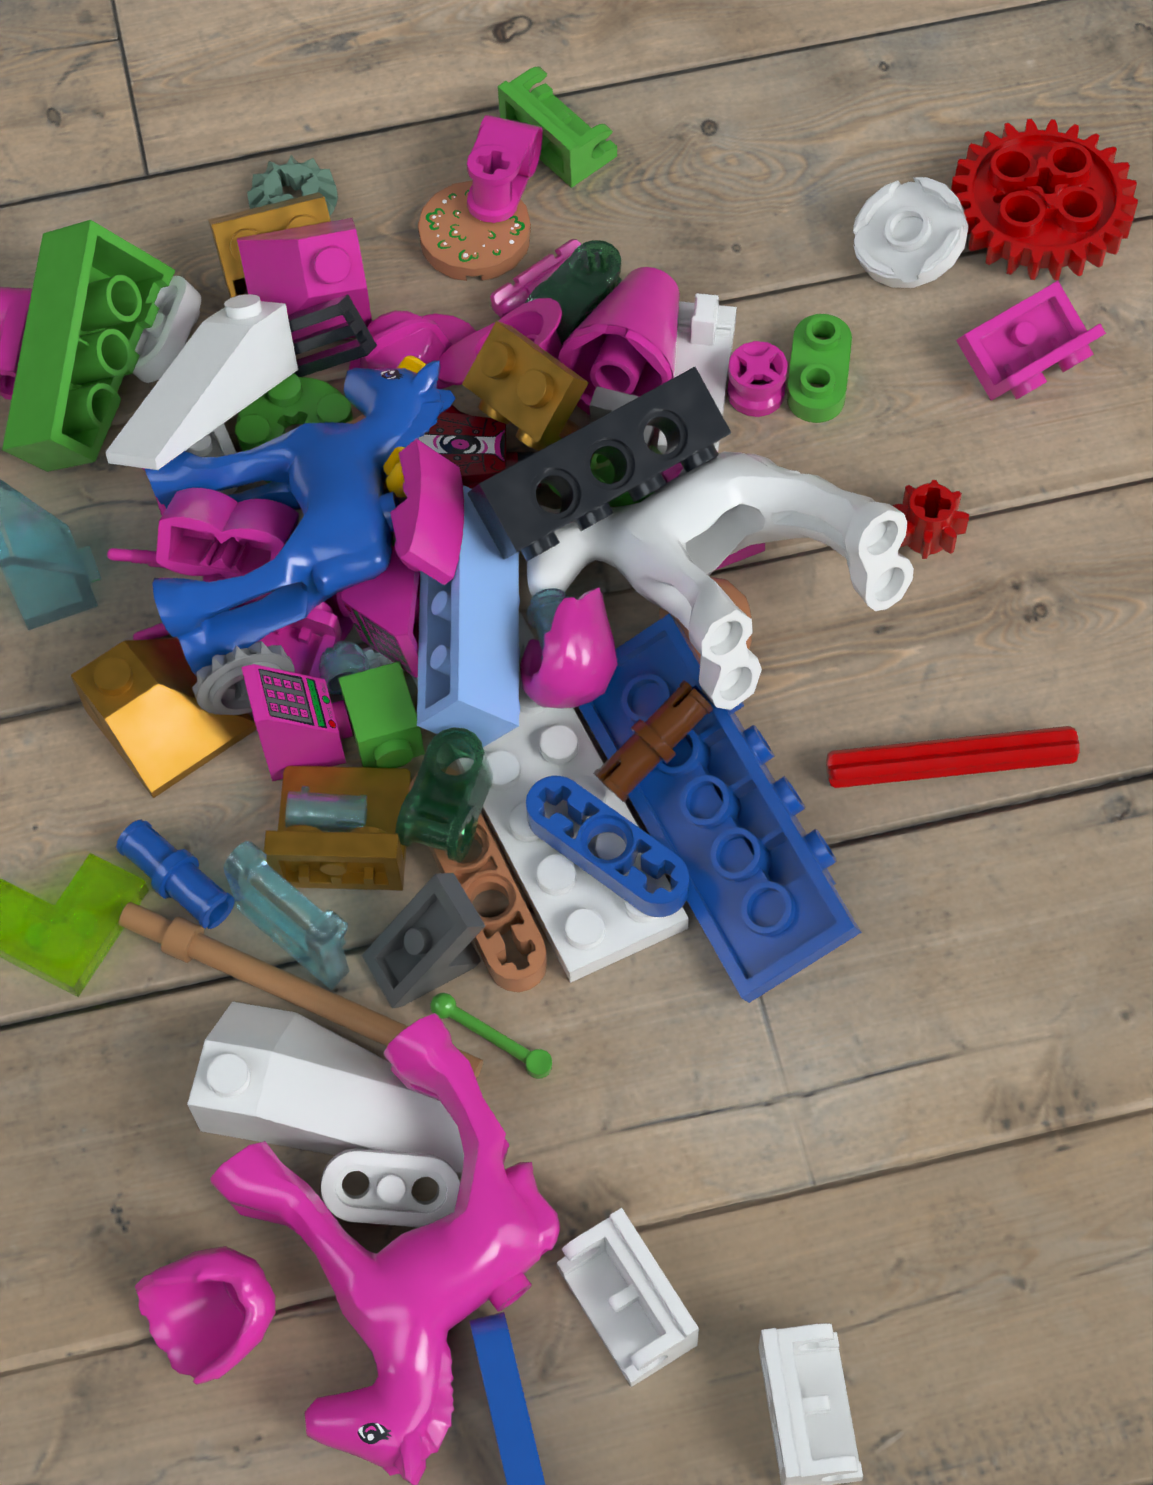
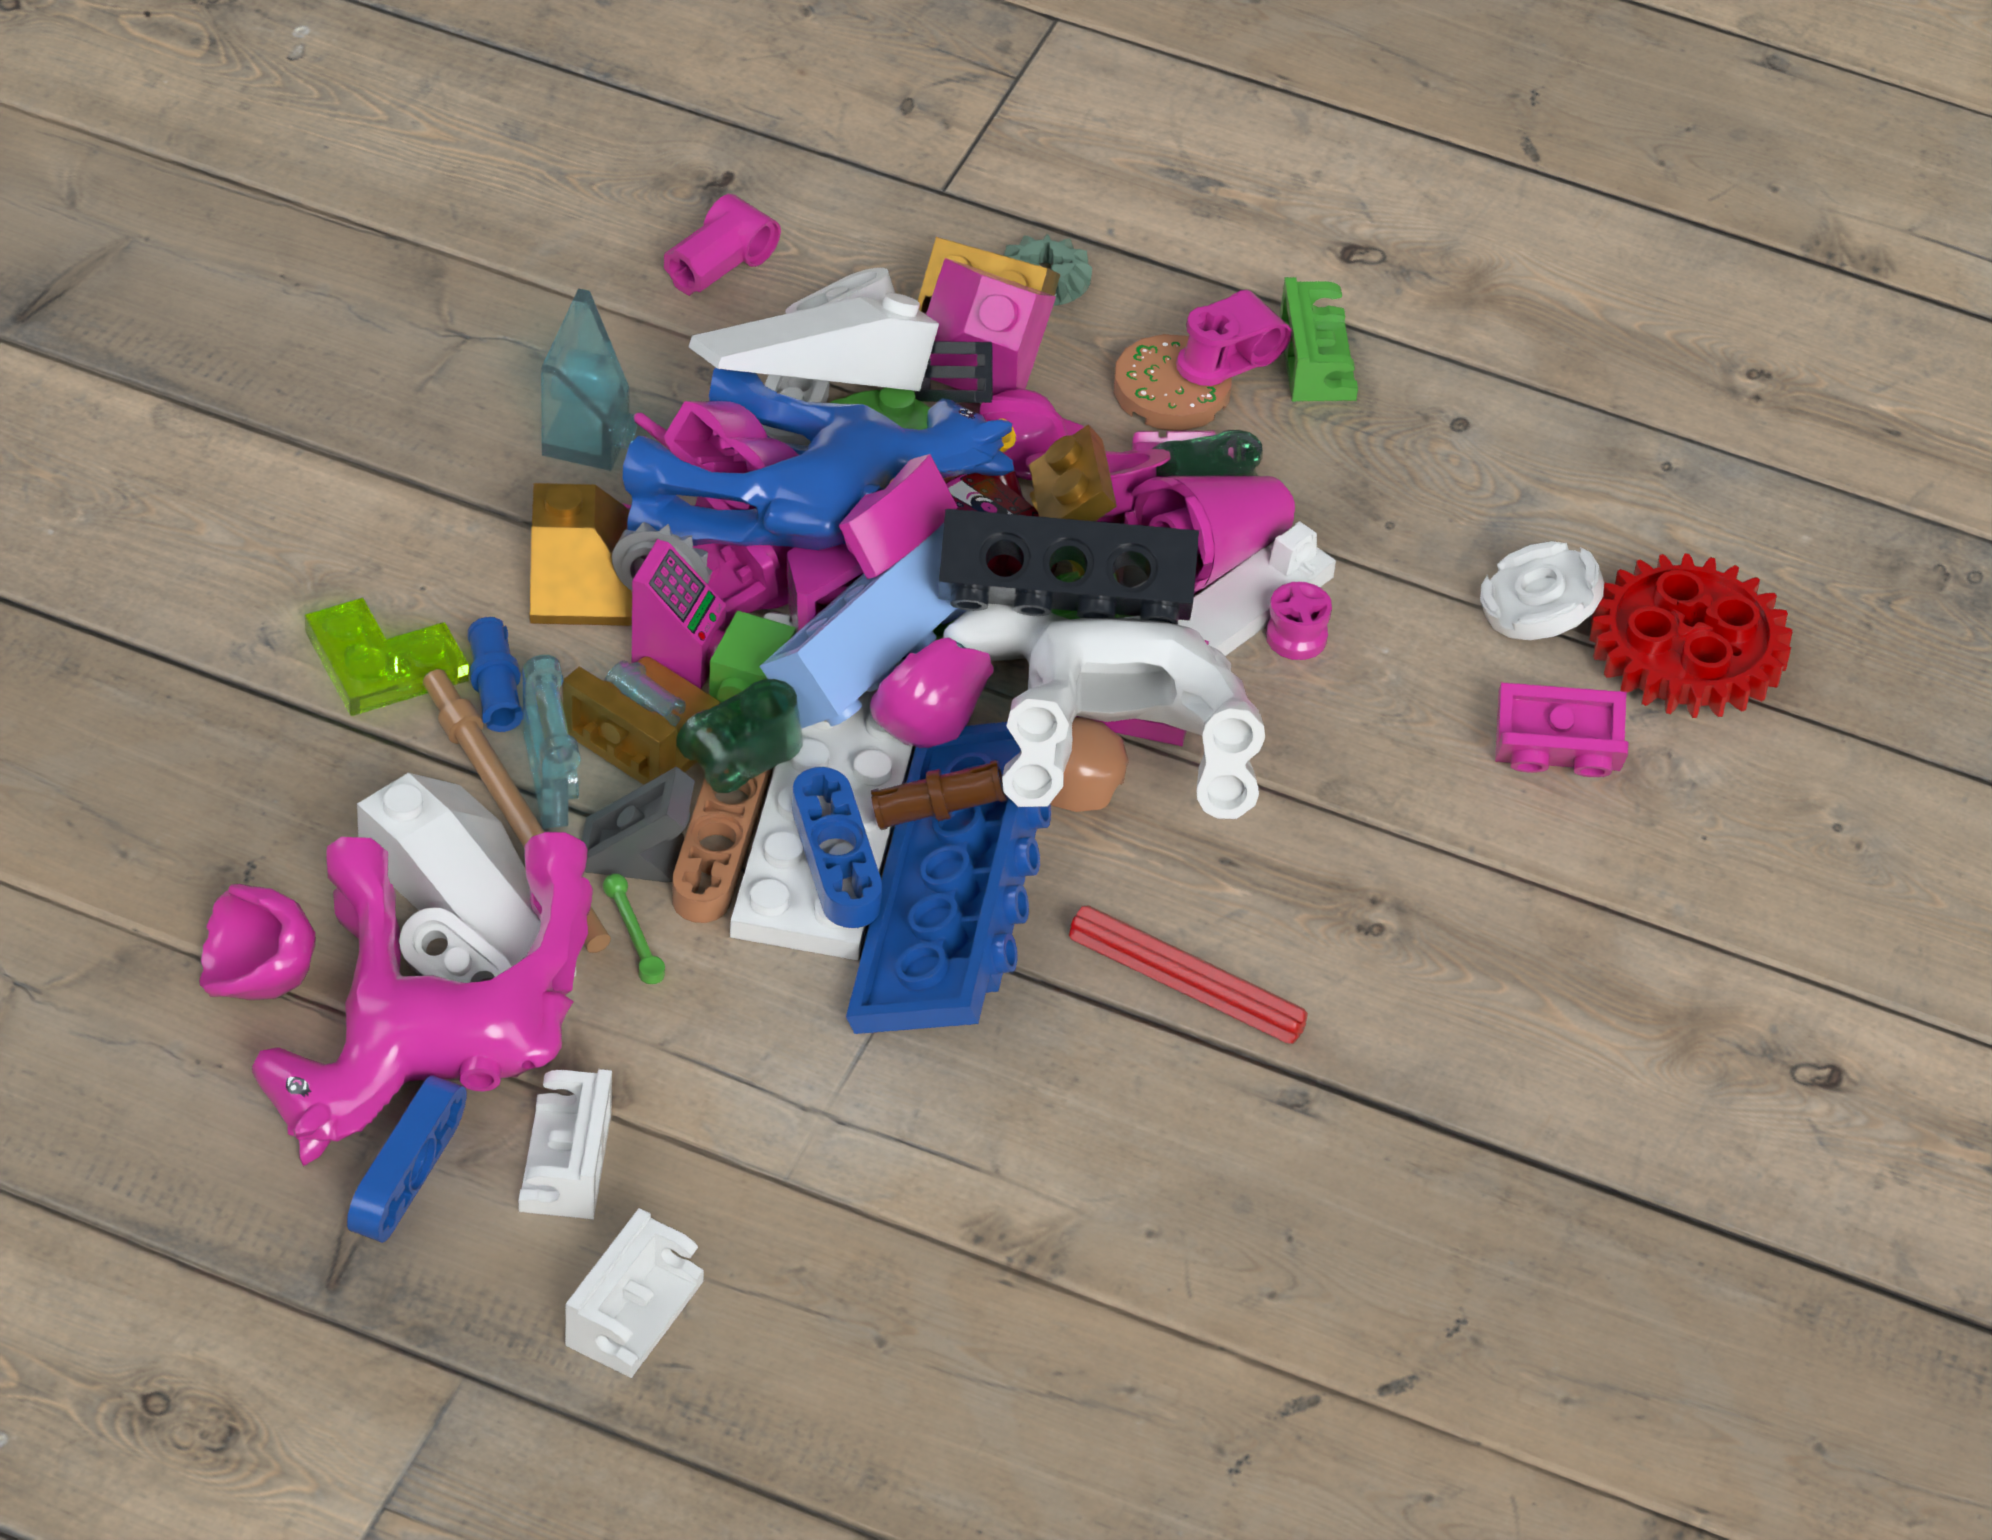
camera: 30 degrees right, 15 degrees down
(79, 343) = (763, 264): bright green wedge -> none
(341, 661) = (753, 601): clear light blue hinge -> none
(819, 363) = (1375, 644): bright green plate -> none
(932, 518) = (1338, 799): red gear -> none

